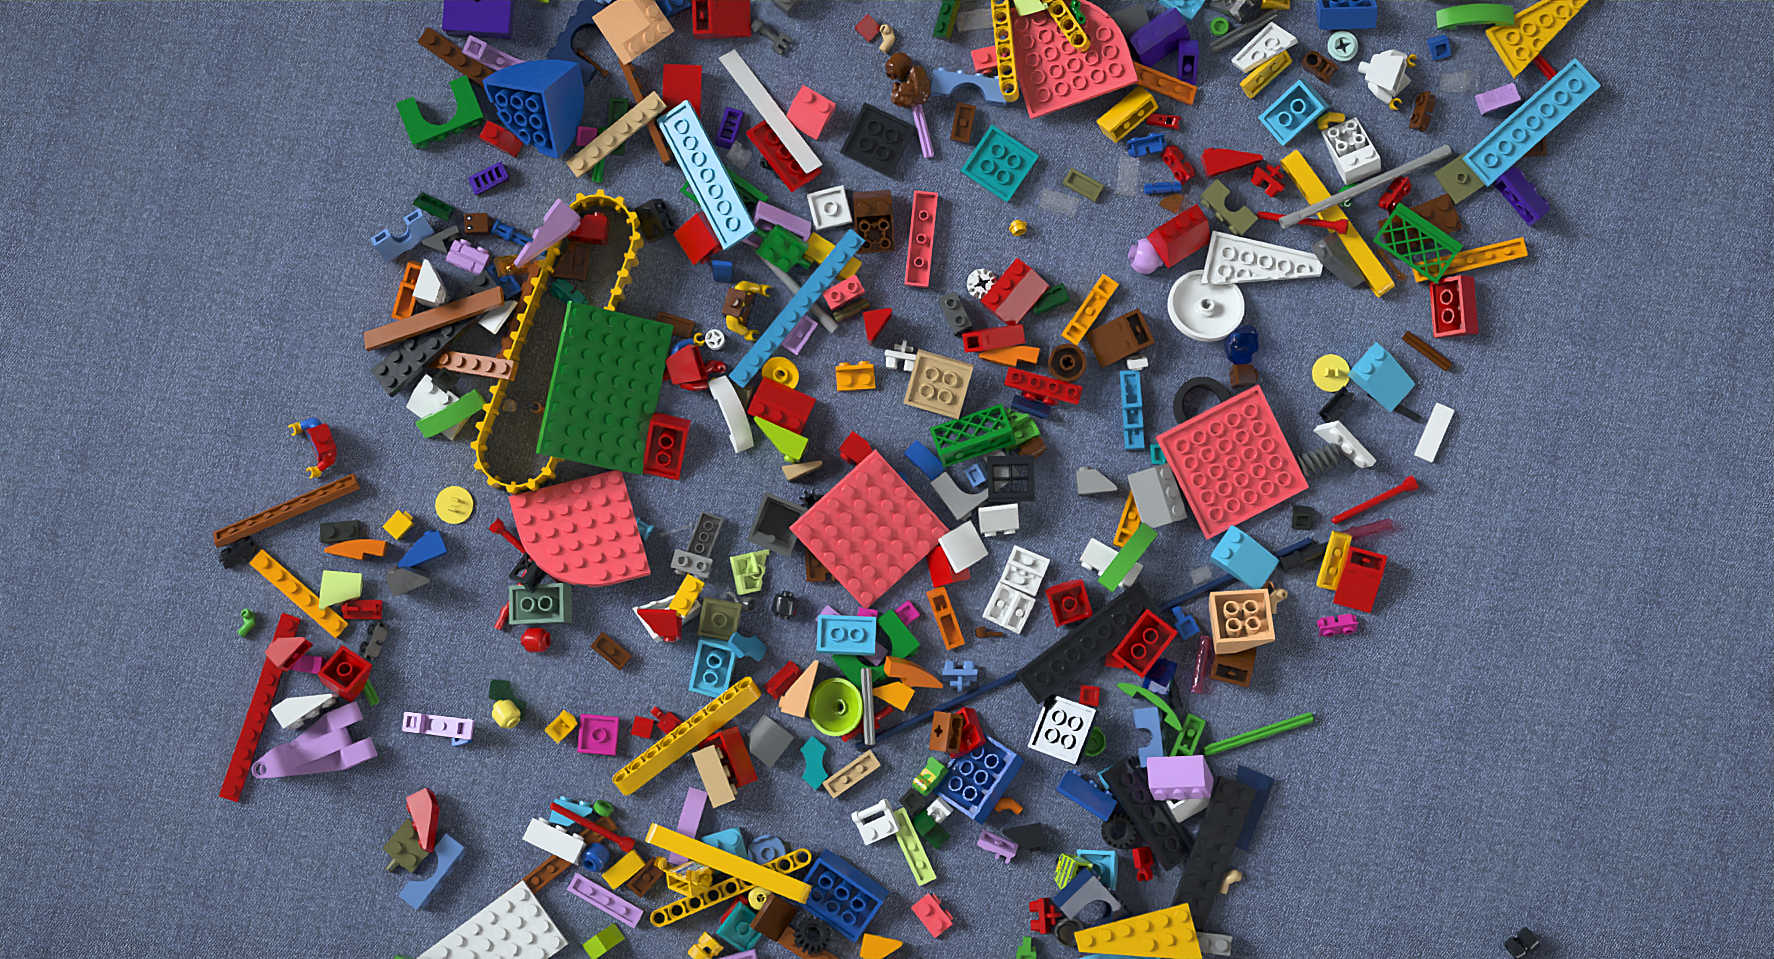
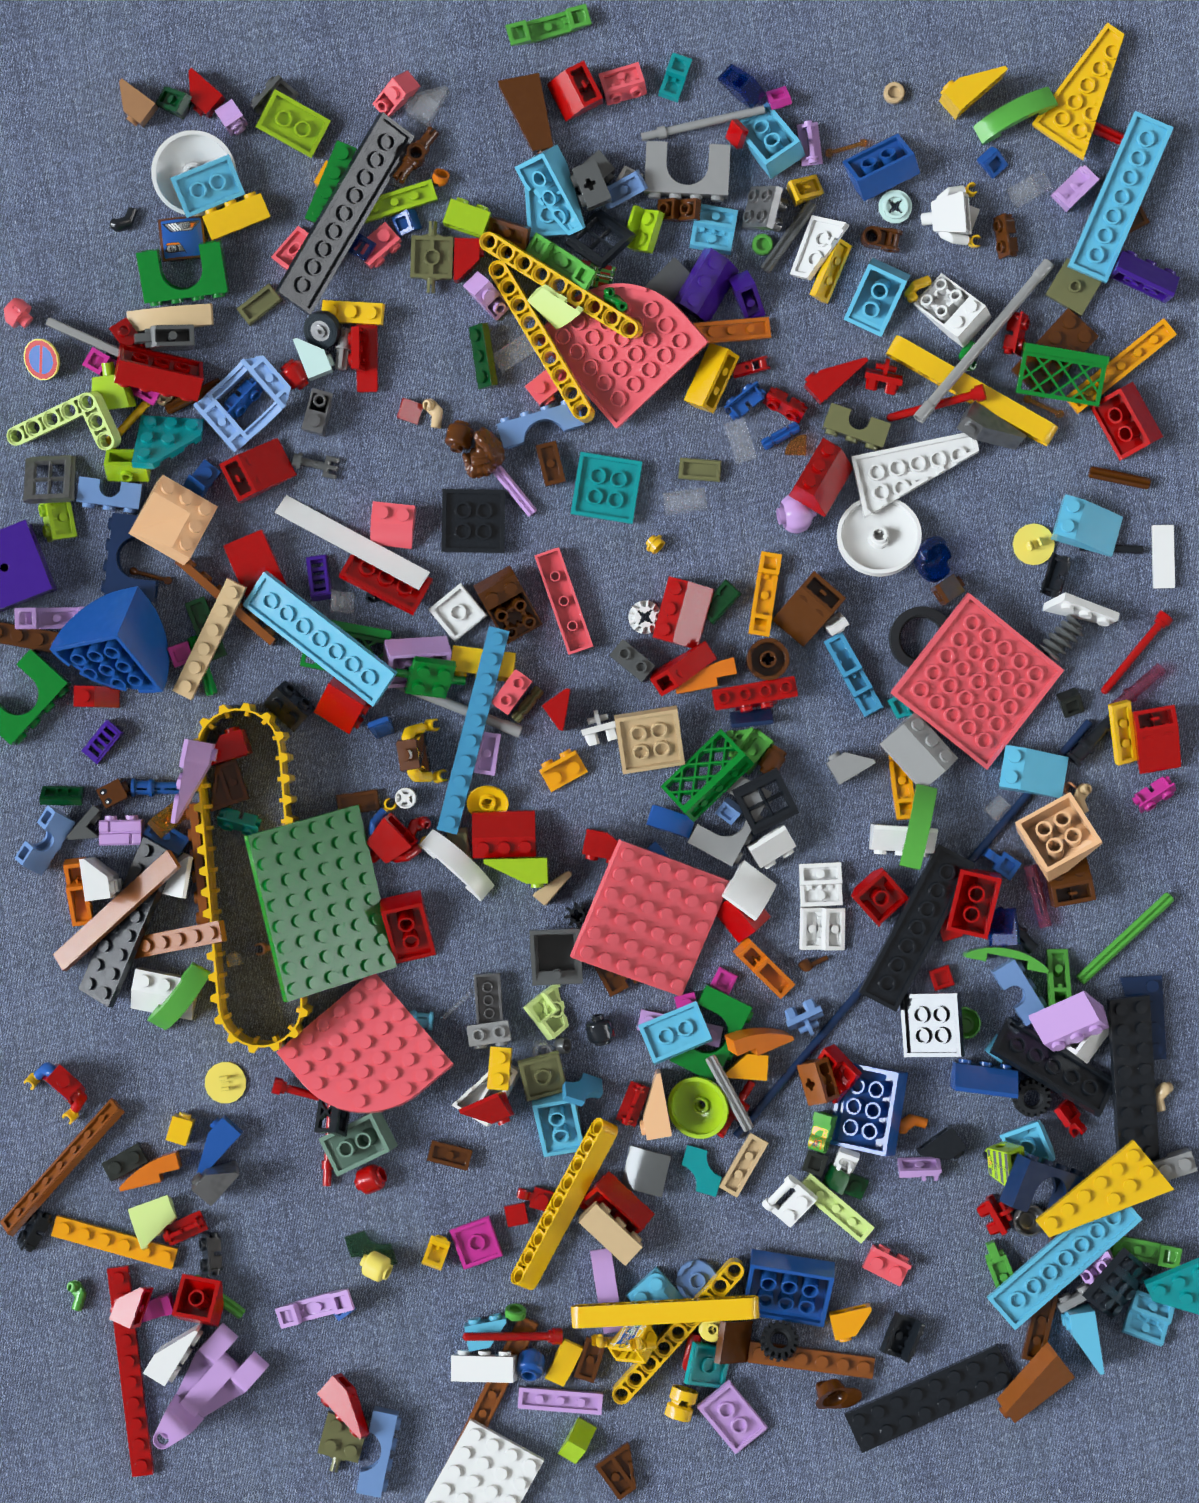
camera: 25 degrees left, 5 degrees up
(444, 379) = (157, 966): pearl dark grey plate -> none

